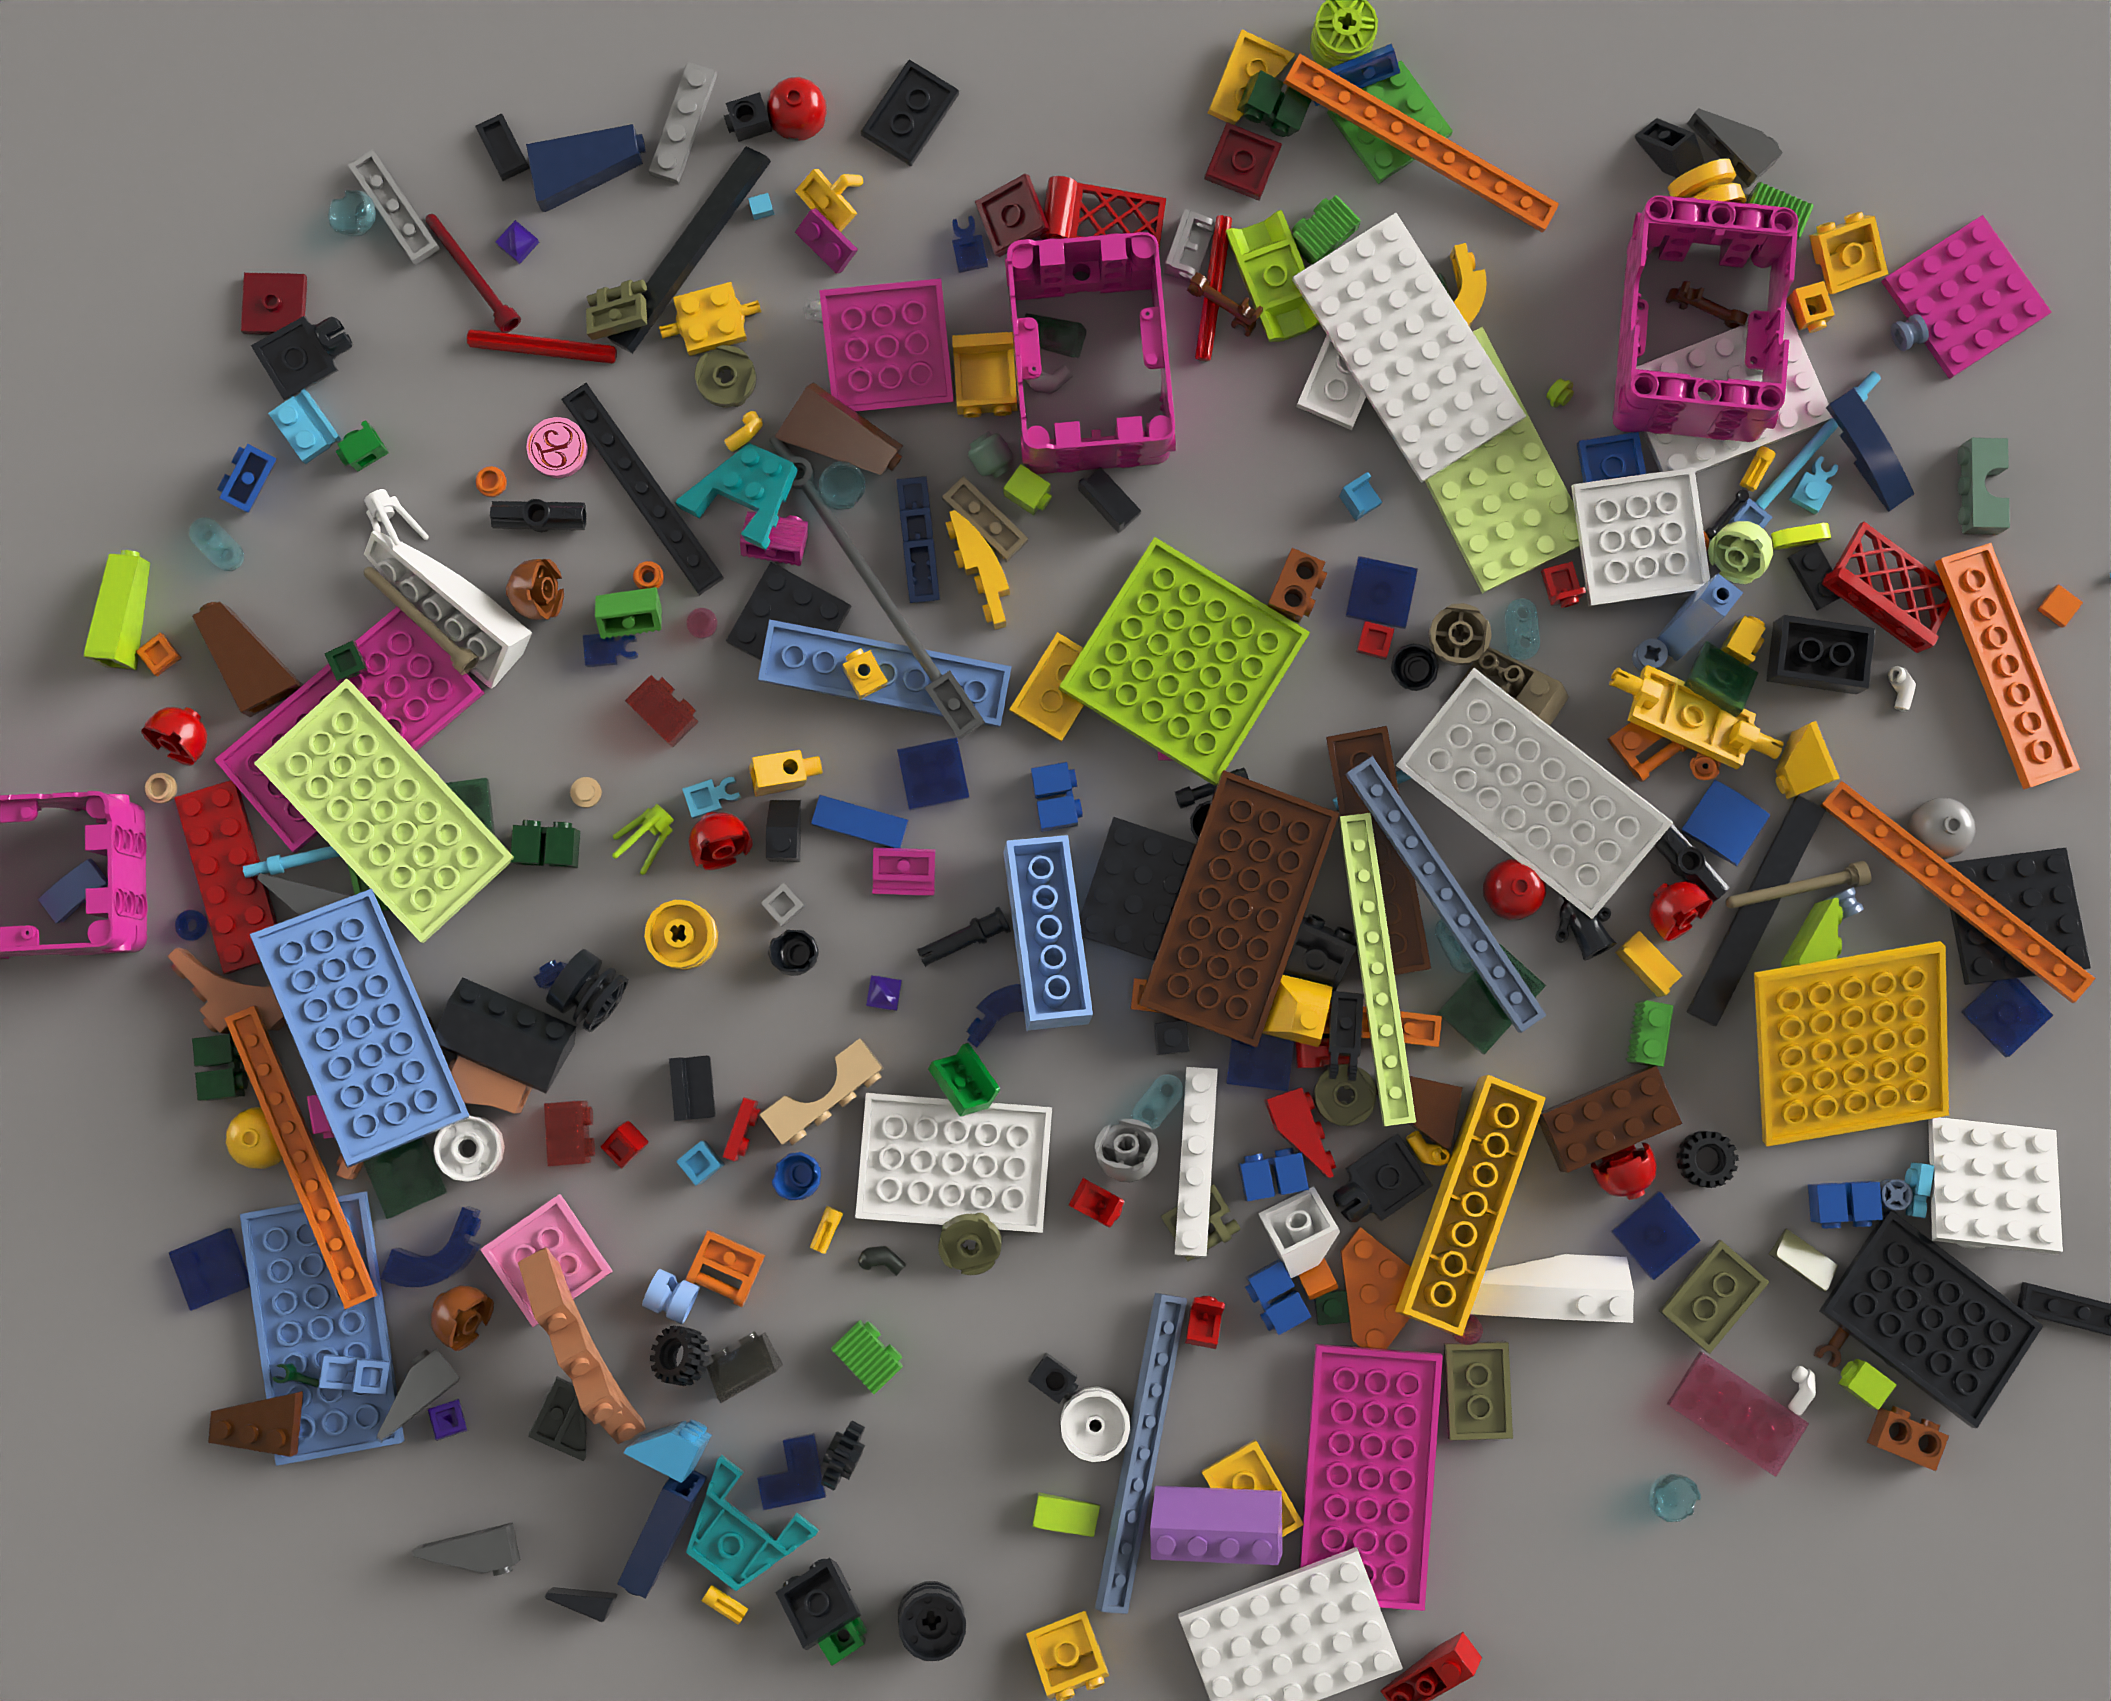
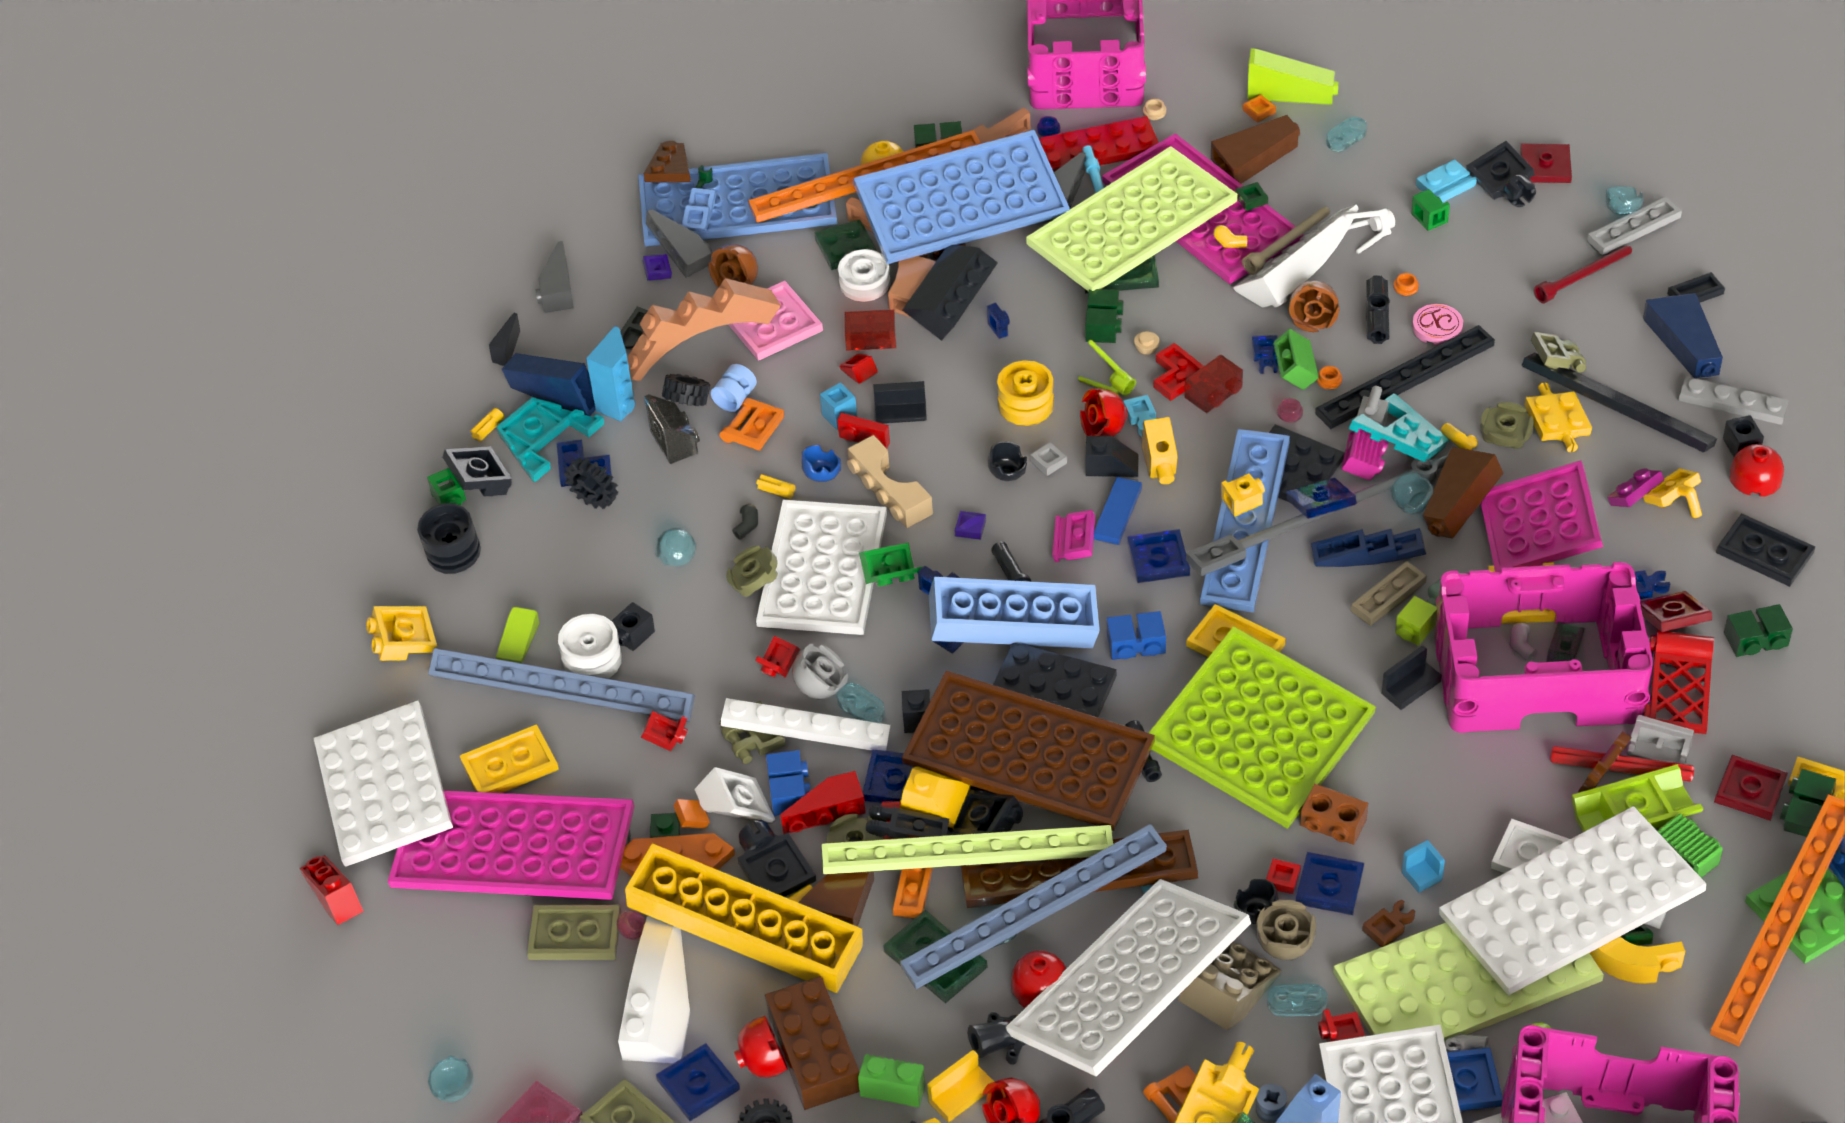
camera: 100 degrees right, 35 degrees down
(177, 732) = (1196, 112): red cylinder -> none
(210, 1269) = (788, 141): clear blue plate -> none
(247, 478) = (1398, 144): blue brick -> none
(416, 1270) = (779, 266): clear blue arch -> none
(420, 692) = (1228, 239): none -> yellow arm
(517, 242) = (1613, 299): dark purple tile -> none
(541, 346) = (1524, 314): red axle -> none
(582, 986) = (982, 333): black wheel -> none
(638, 745) = (1179, 367): none -> red plate
(718, 528) = (1375, 407): none -> light grey brick
(761, 206) = (1663, 449): medium azure piece -> none
(860, 586) = (1321, 498): none -> clear blue plate
(868, 1356) = (668, 507): bright green brick -> none
(925, 1341) = (675, 547): none -> clear light blue hair
(978, 557) = (1339, 593): yellow slope -> none
(1033, 126) = (1749, 636): none -> dark green piece
(1216, 1525) = (489, 726): medium lavender slope -> none
(1283, 1312) = (664, 782): blue piece -> none
(1433, 537) = (1387, 926): none -> reddish brown plate
(1567, 466) = (1466, 1042): none -> light grey arm

